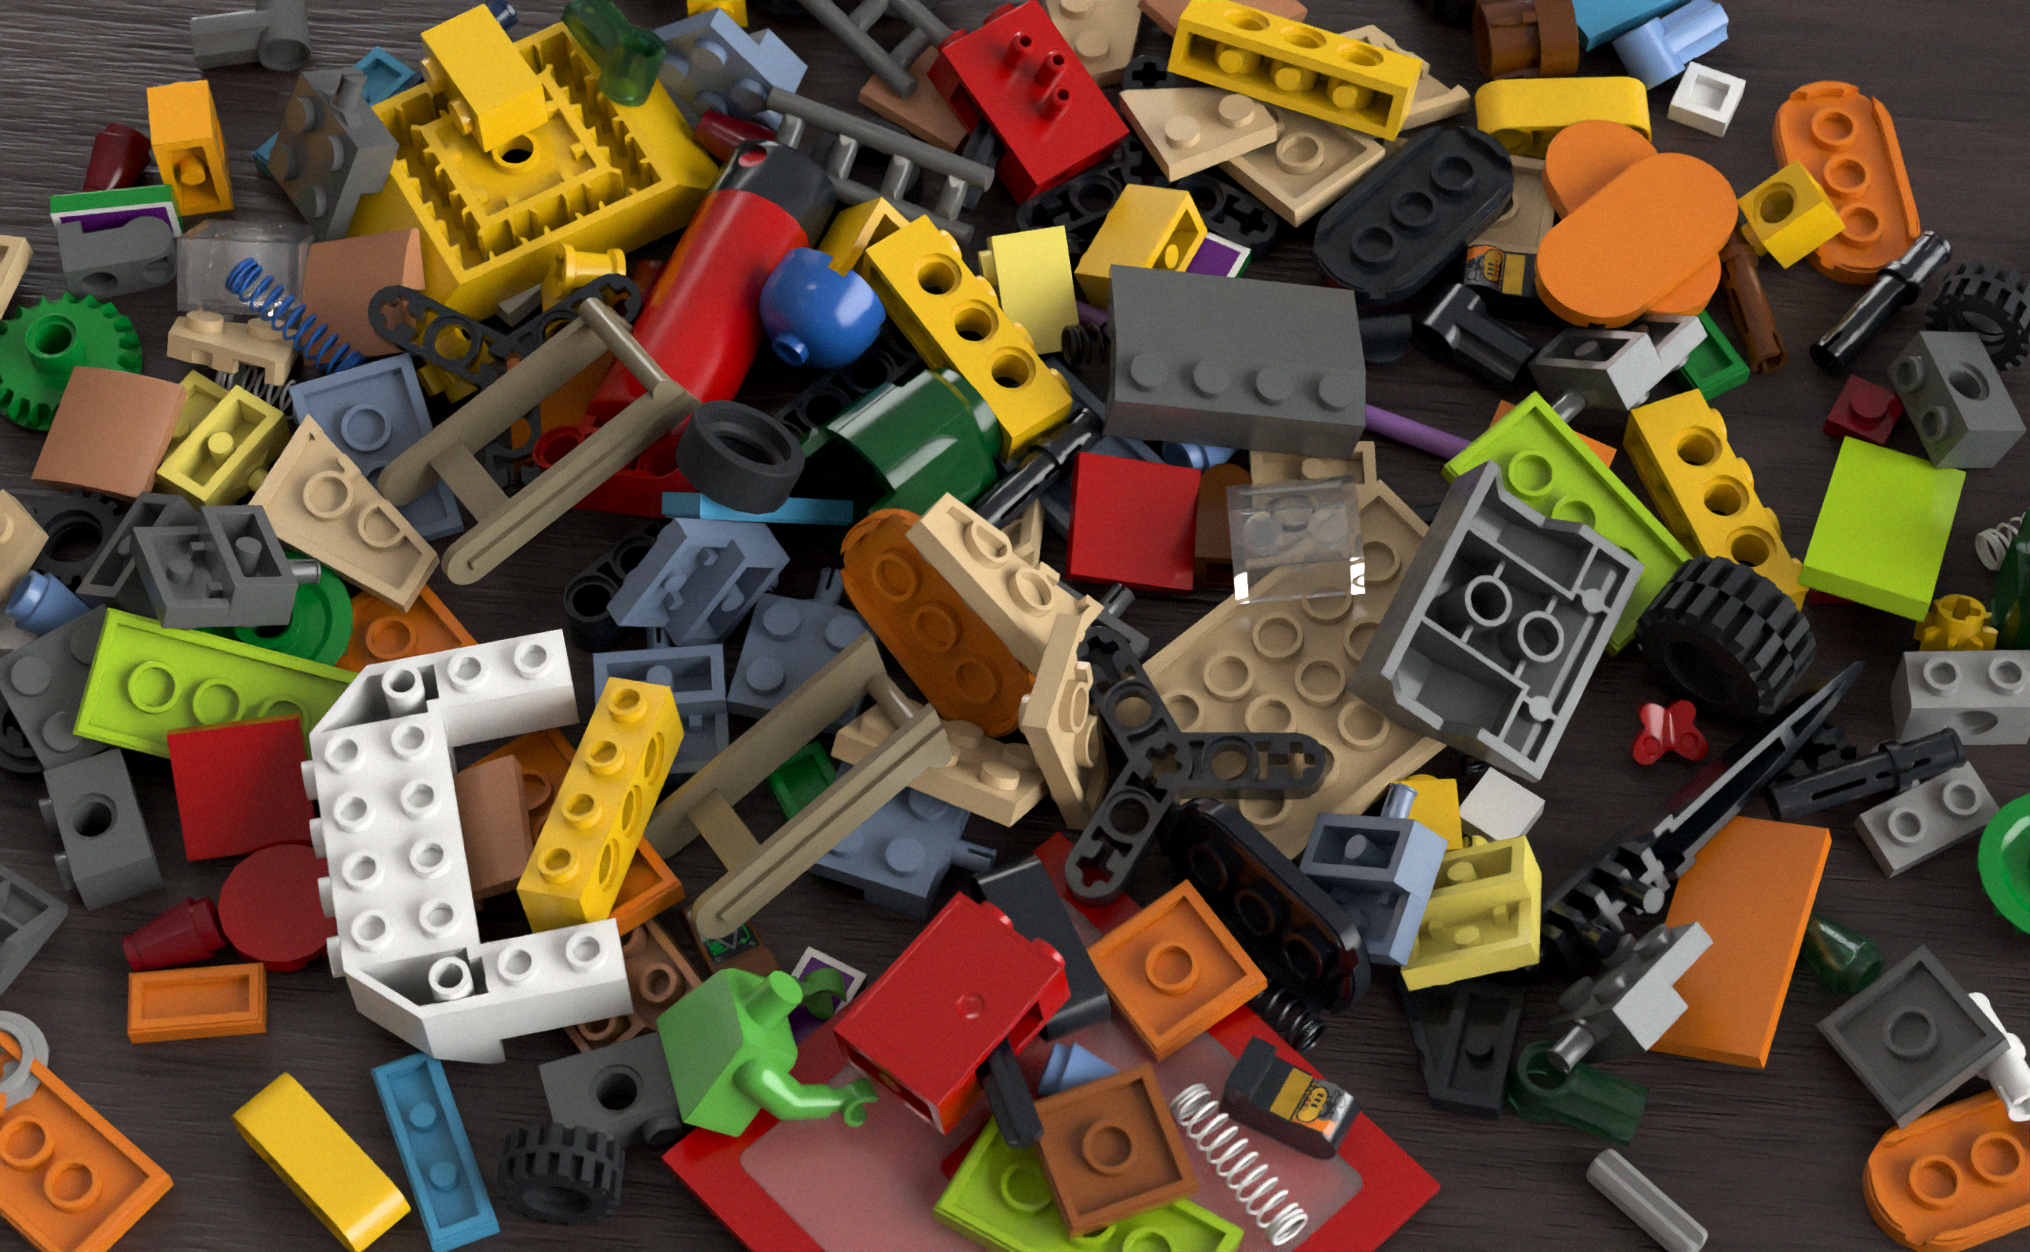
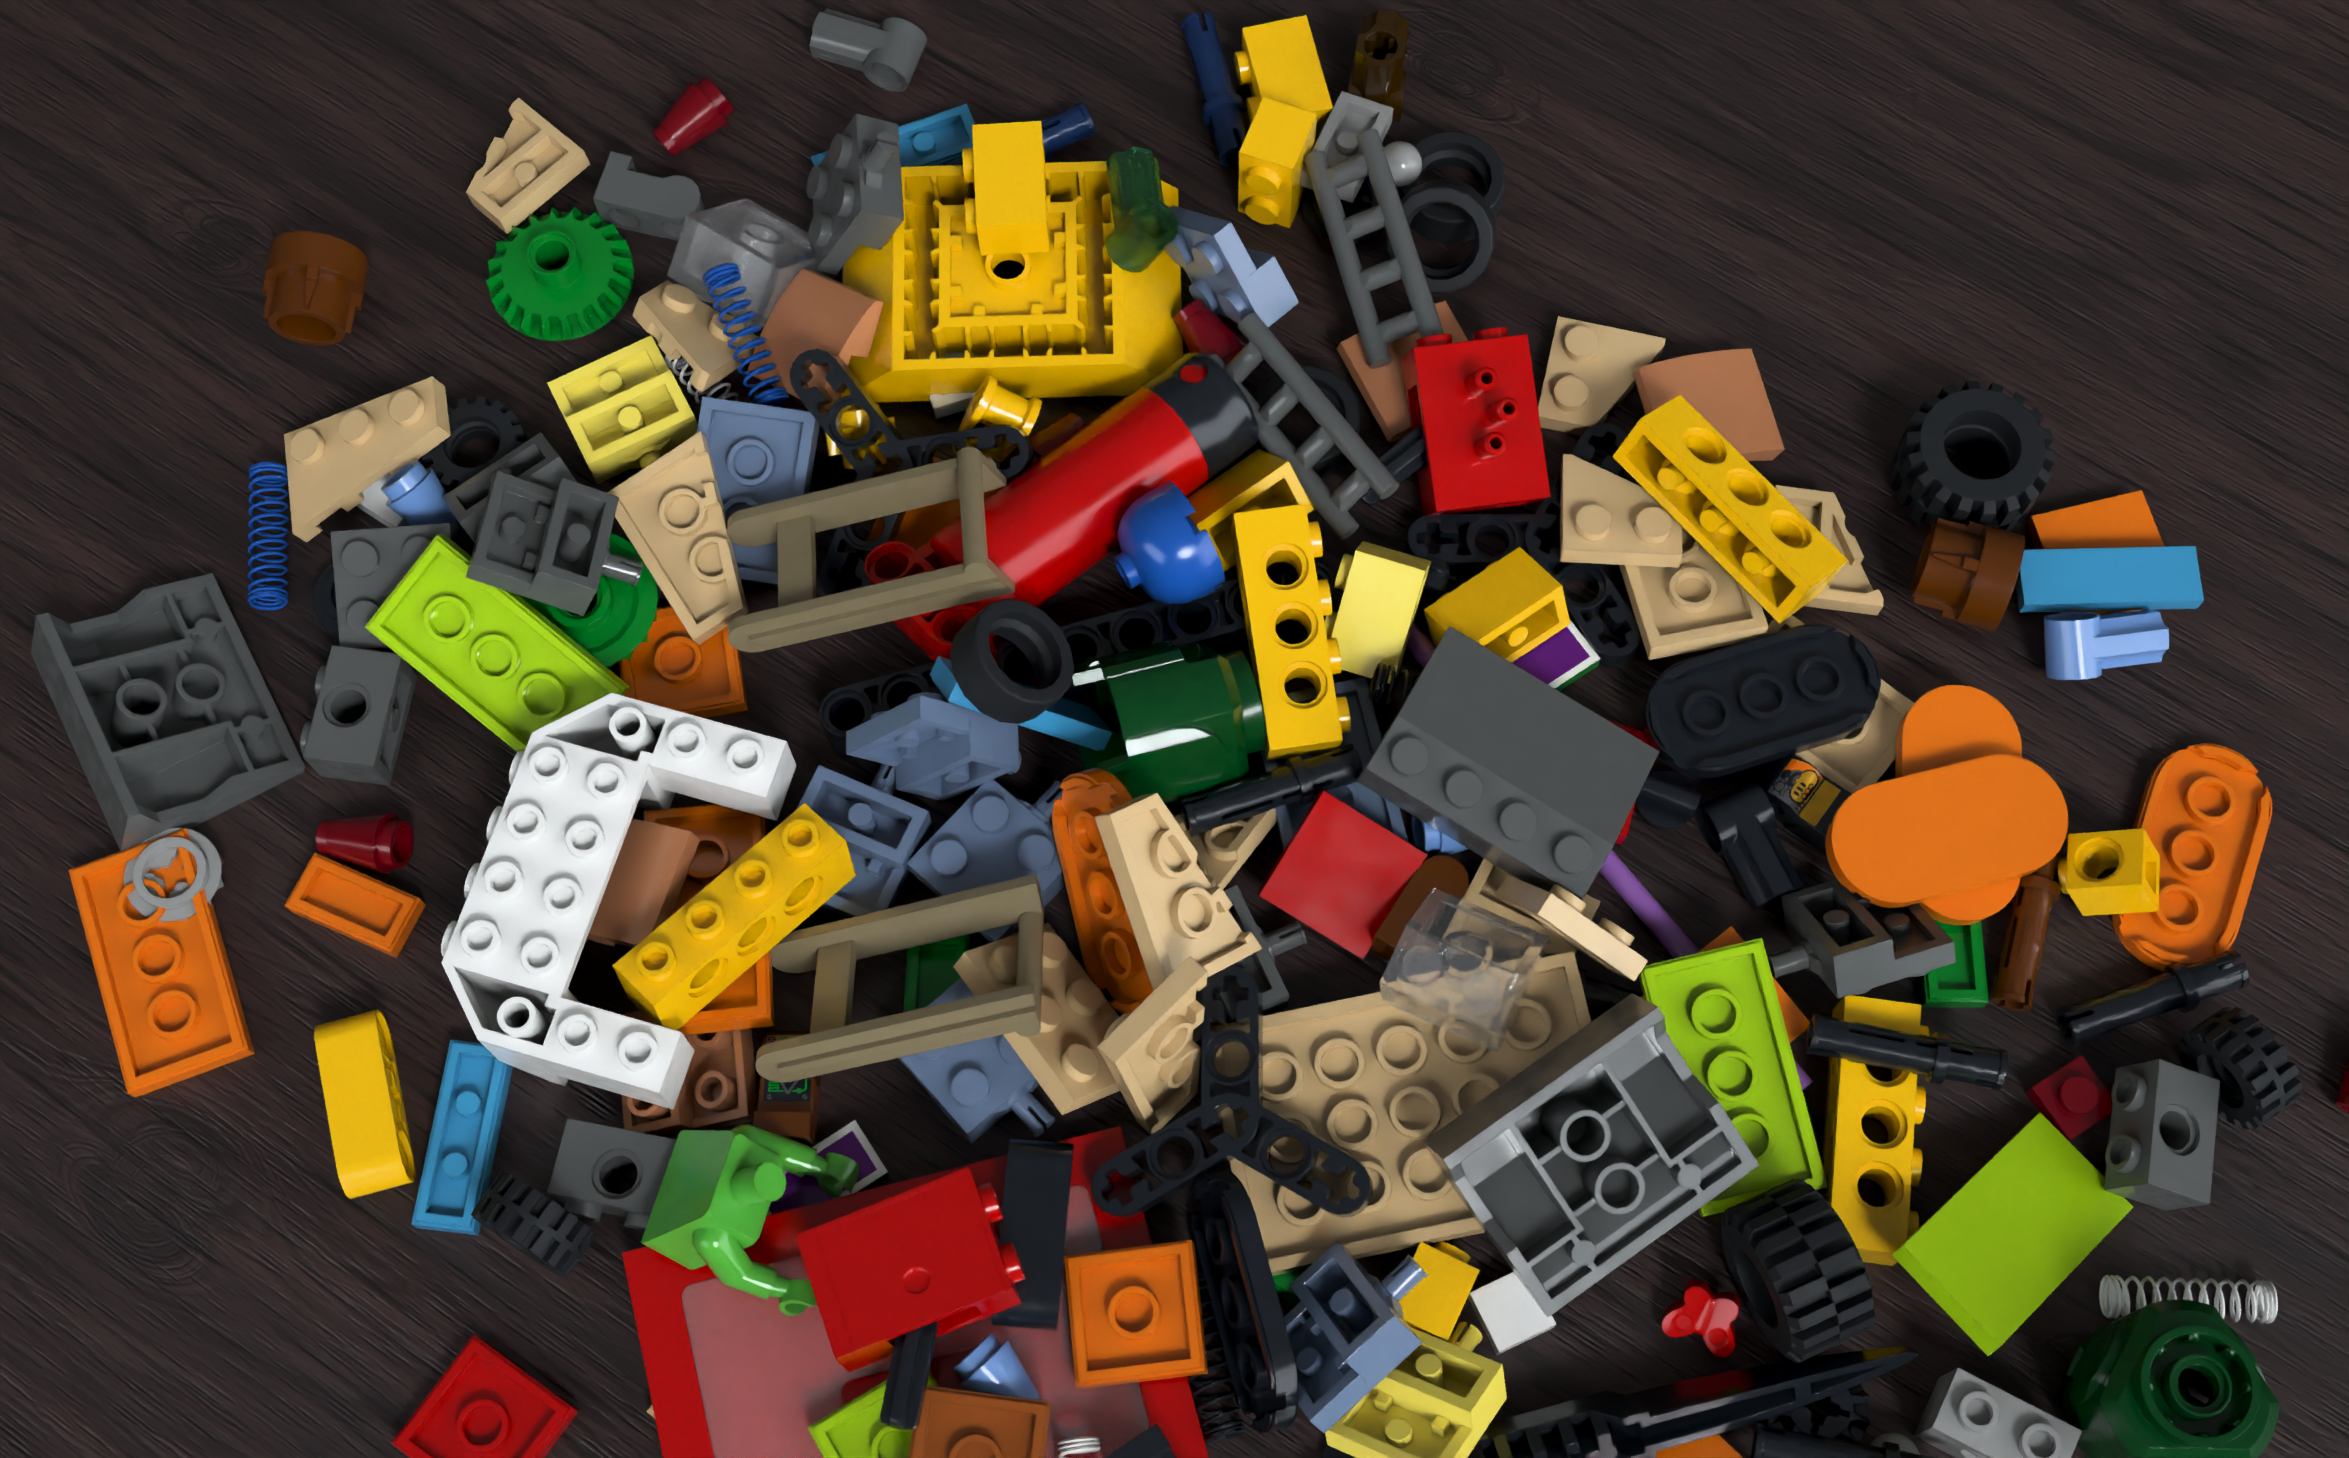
camera: 30 degrees right, 10 degrees up
(110, 433) = (549, 366): nougat slope -> none
(117, 207) = (667, 158): tile -> none
(190, 146) = (752, 131): light orange brick -> none
(241, 785) = (474, 732): red tile -> none
(275, 908) = (445, 849): red tile -> none
(1354, 450) = (1562, 916): none -> tan wing
(1533, 111) = (1933, 653): yellow beam -> none
(1706, 99) = (2106, 711): white tile -> none
(1733, 419) = (1933, 1056): none -> black pin
(1956, 625) = (2027, 1365): yellow gear -> none

